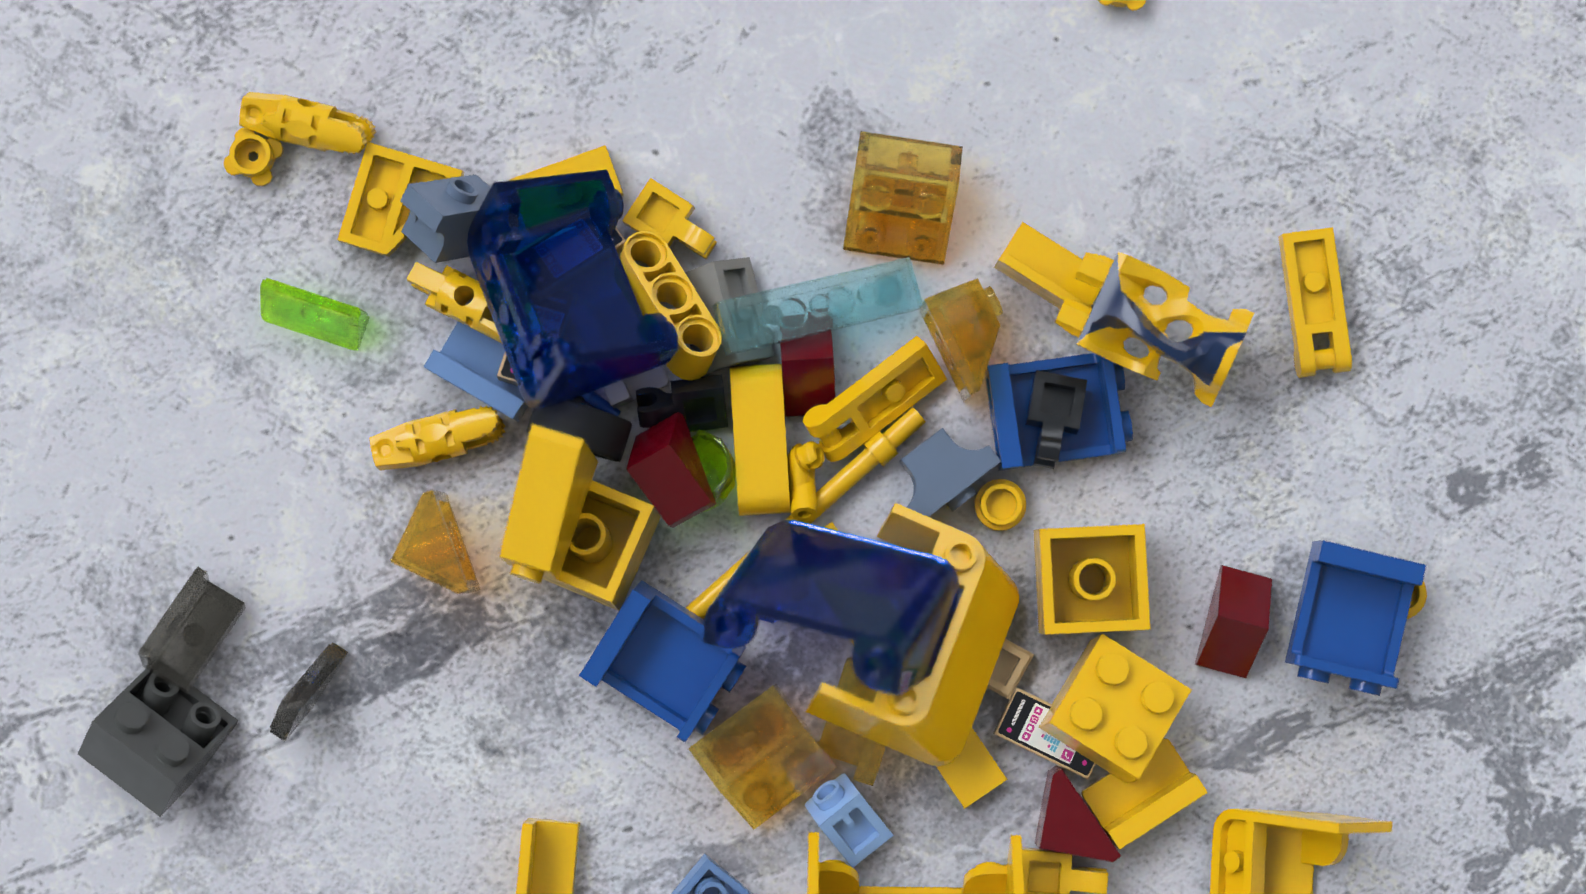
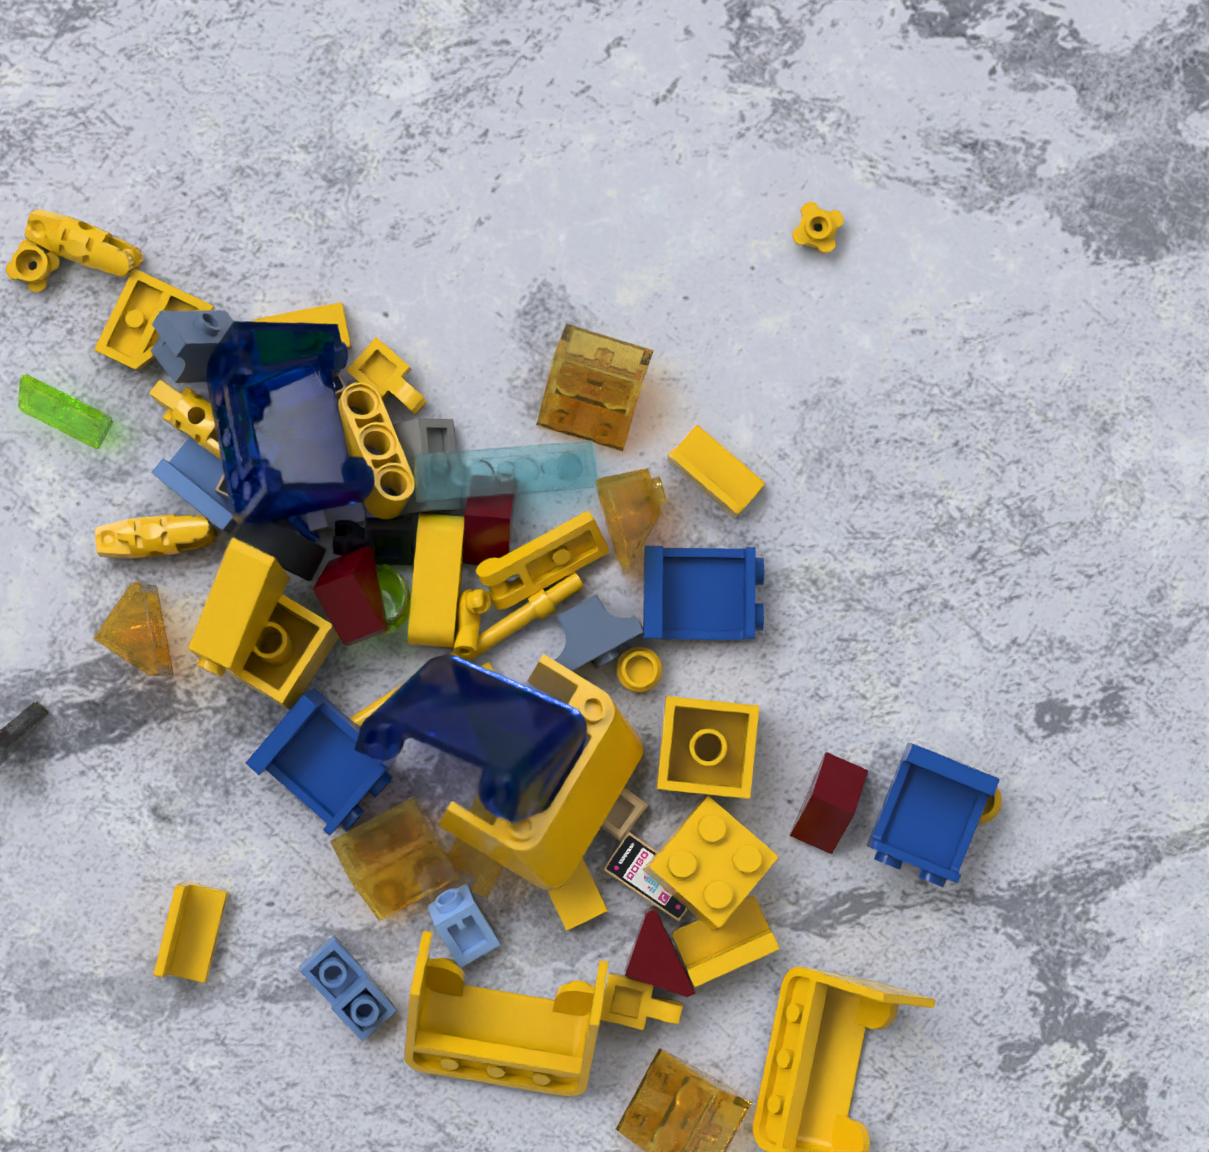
camera: 10 degrees right, 0 degrees up
(1055, 408) = (699, 593): black plate -> none
(1125, 313) = (768, 518): yellow hips -> none
(1315, 300) = (943, 532): yellow plate -> none

